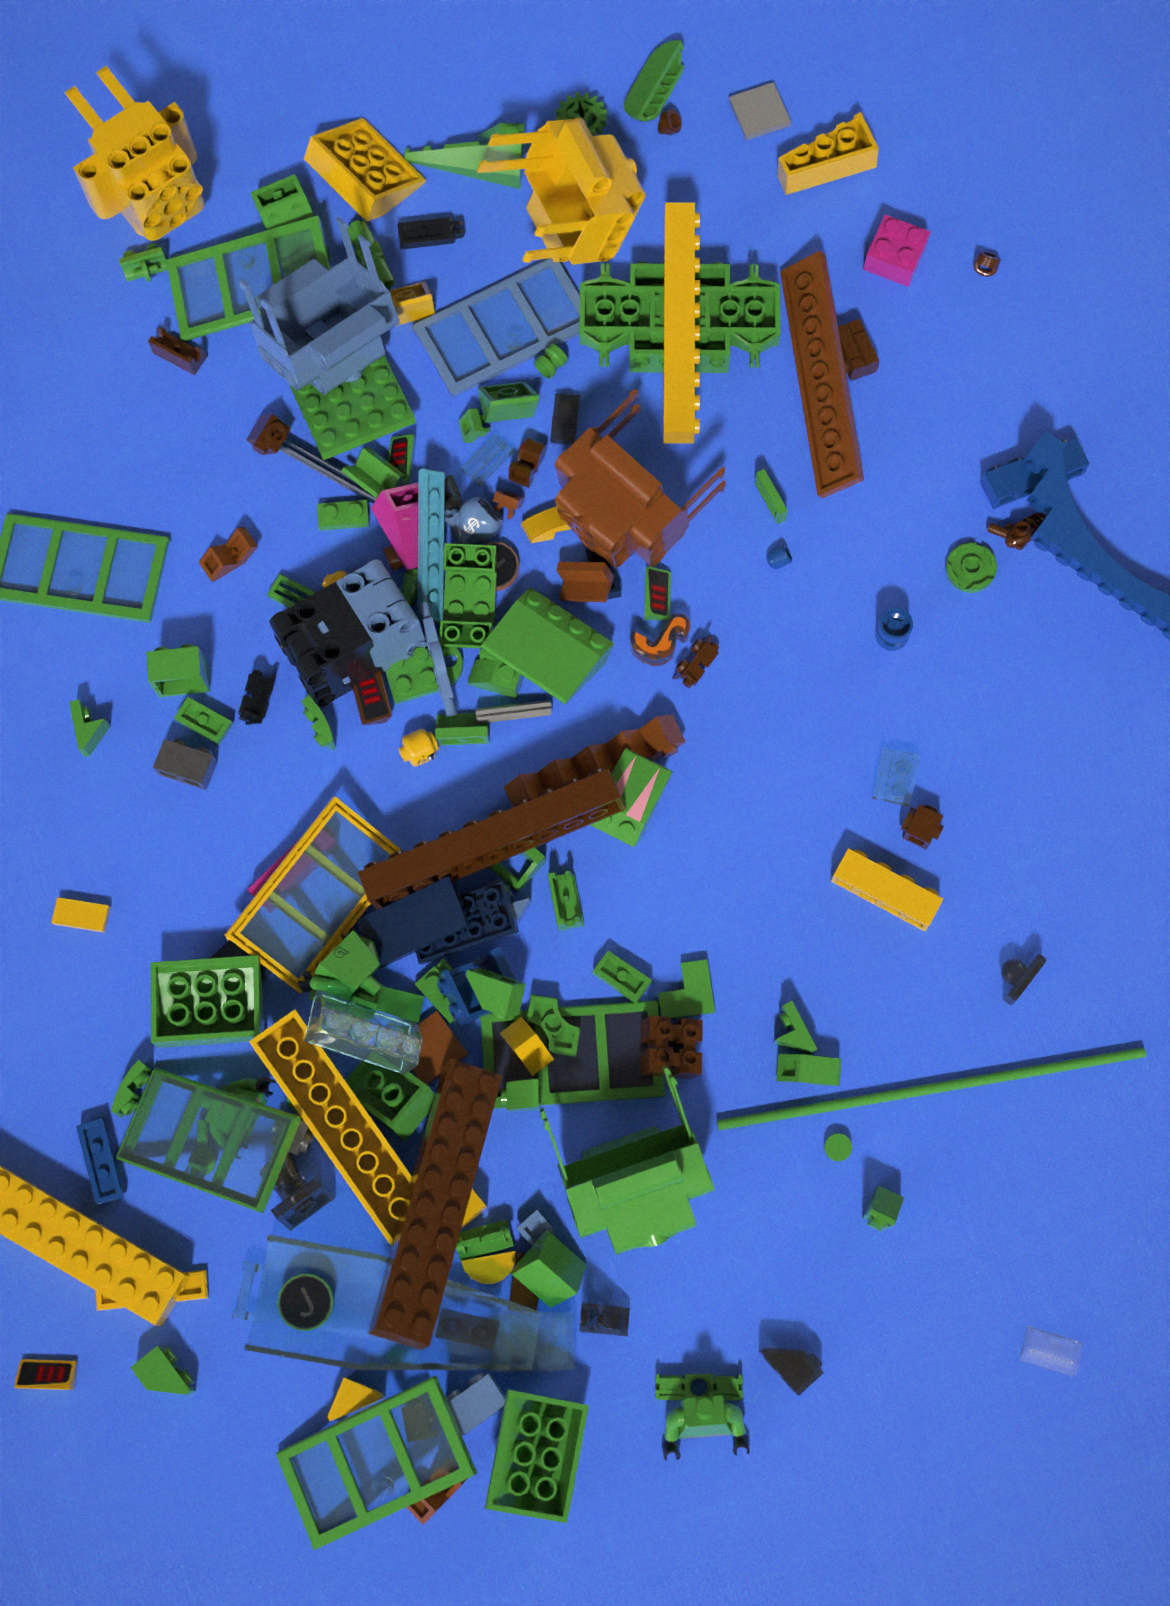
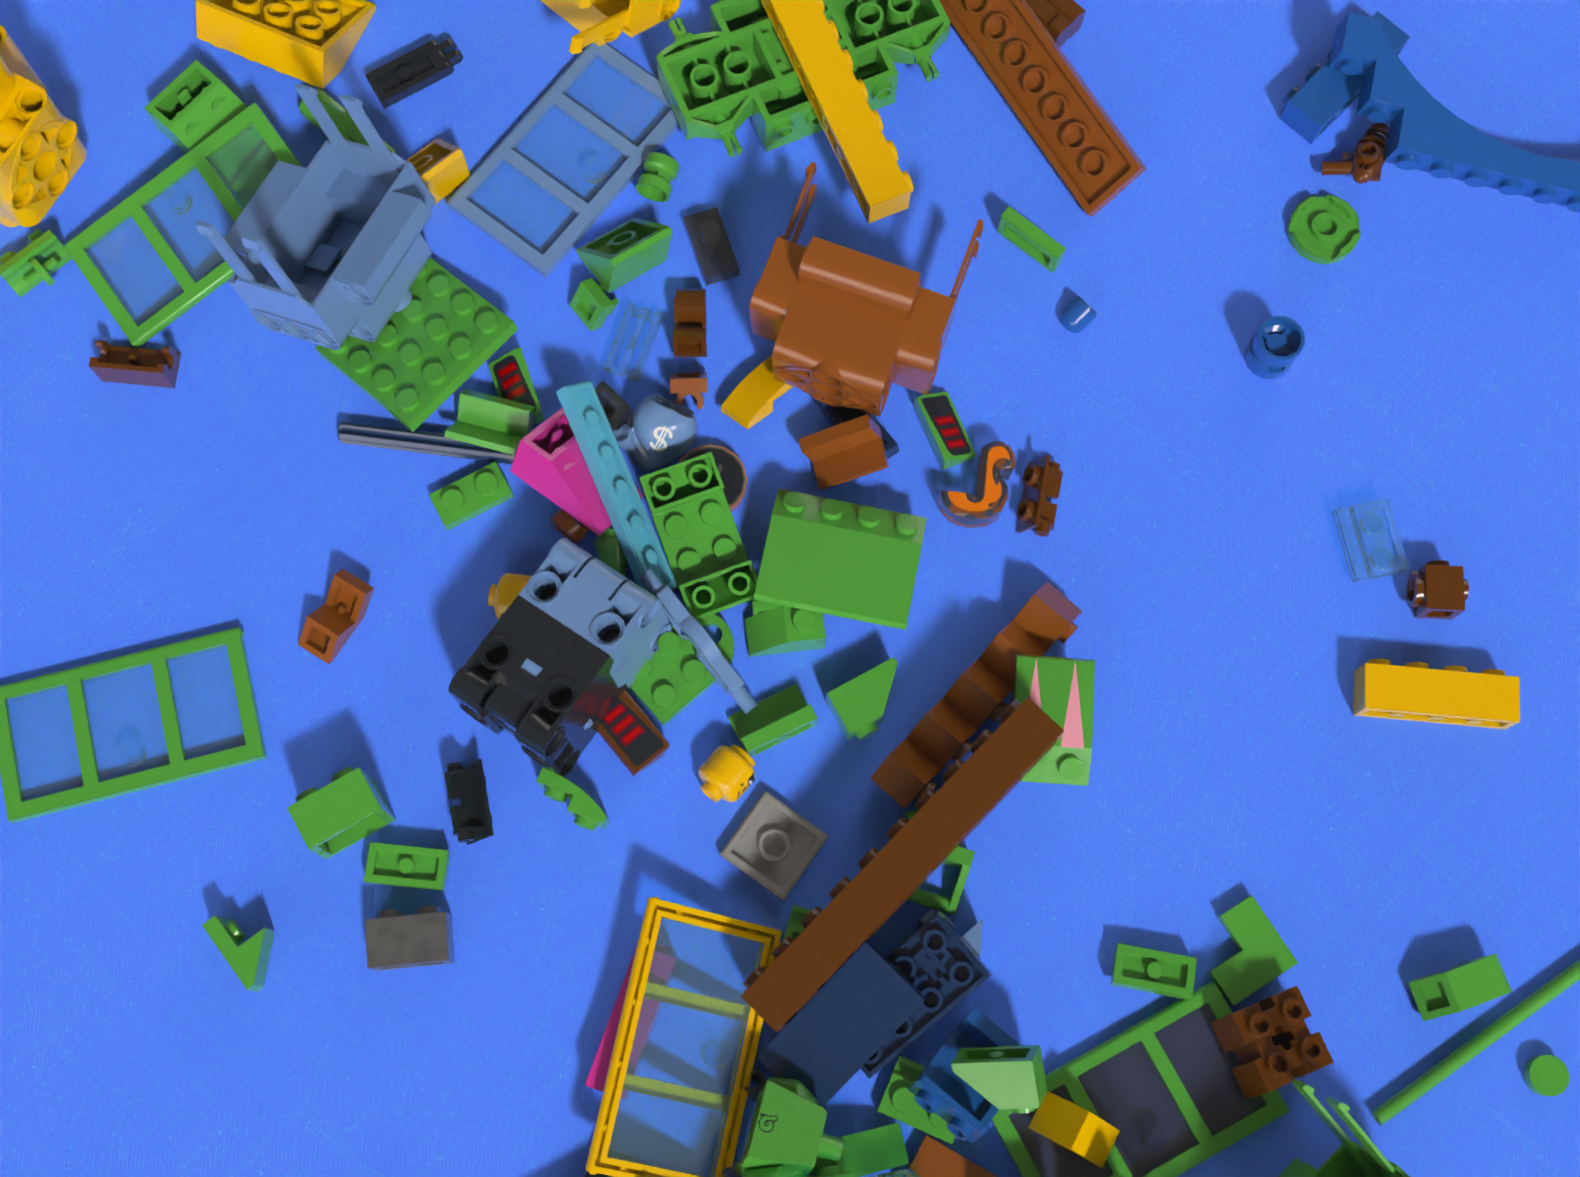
camera: 30 degrees left, 0 degrees up
(268, 434) = (318, 427): reddish brown brick -> none
(283, 601) = (451, 620): bright green tile -> none
(428, 803) = (774, 845): none -> light grey tile
(513, 711) = (831, 668): light grey axle -> none
(523, 739) = (862, 701): none -> bright green slope
(561, 1035) = (1112, 1091): bright green tile -> none
(565, 900) = (1025, 900): bright green hinge -> none
(799, 1037) = (1424, 945): bright green slope -> none

